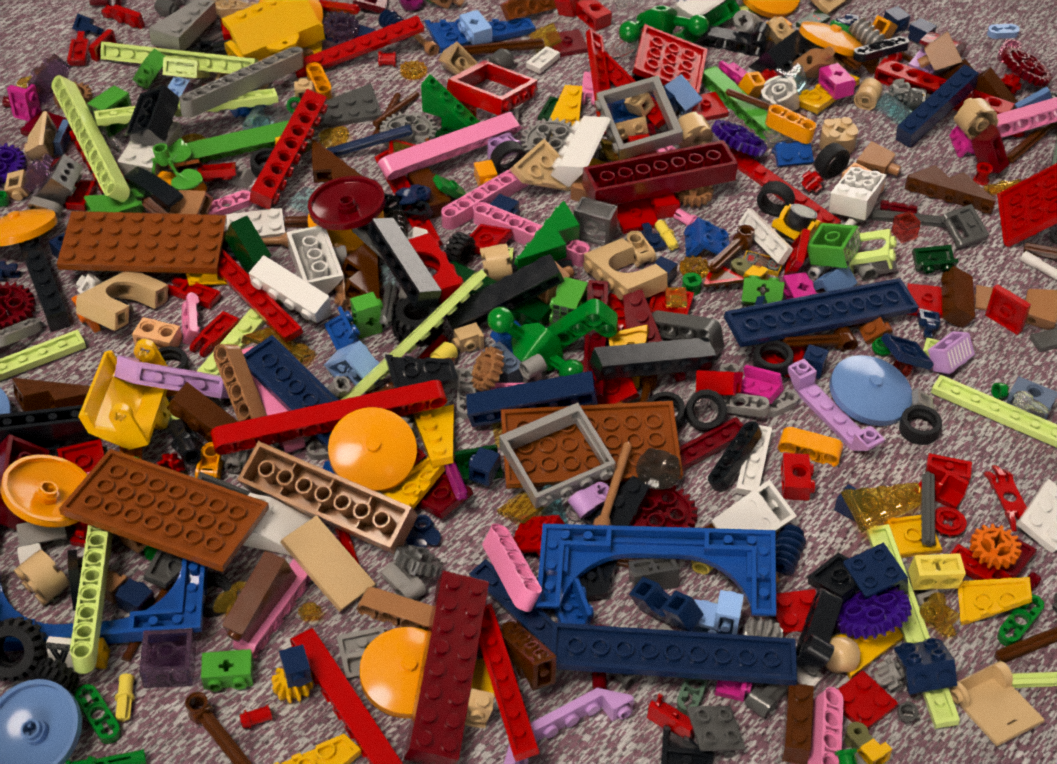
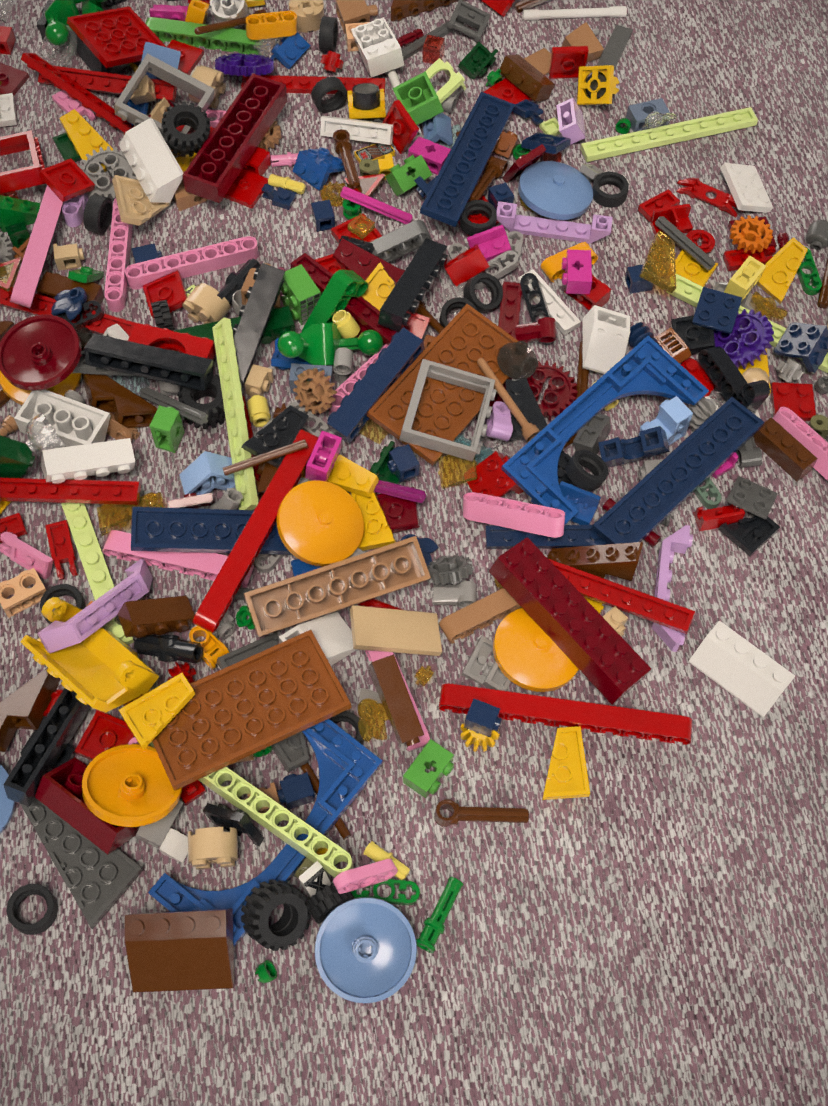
camera: 50 degrees left, 15 degrees up
(89, 682) = (365, 876): none -> bright pink beam
(114, 456) = (155, 709): none -> yellow wing
(168, 658) = (383, 803): clear purple brick -> none
(238, 382) = (156, 562): medium nougat beam -> none
(255, 716) = (487, 777): red pin -> none
(282, 249) = (42, 435): none -> clear cylinder
(318, 368) = (192, 501): none -> plate
(341, 329) = (162, 458): blue bracket -> none
(389, 375) = (265, 457): none -> reddish brown bar
(429, 411) = (323, 457): none -> dark pink brick
(457, 170) = (68, 256): none -> tan brick
(484, 171) = (94, 242): light orange brick -> none
(512, 121) = (66, 180): none -> red plate
(551, 238) = (225, 254): green slope -> none
(571, 346) = (346, 324): none -> light yellow brick
(596, 221) = (232, 213): piece -> none
(606, 259) = (319, 246): tan arch -> none
(617, 577) = (580, 476): none -> black tyre
(624, 129) = (185, 115): none -> black tyre
(642, 250) = (282, 210): tan piece -> none
(654, 305) = (368, 246): none -> black axle
(707, 292) = (376, 205): none -> dark pink axle
(711, 469) = (541, 331): none -> dark red piece
(795, 451) = (577, 271): none -> dark pink brick
(807, 571) = (680, 355): none -> dark orange slope
(865, 347) = (523, 162): none -> dark red plate
(931, 279) = (493, 78): none -> green plate
(1009, 342) = (598, 86): none -> yellow piece

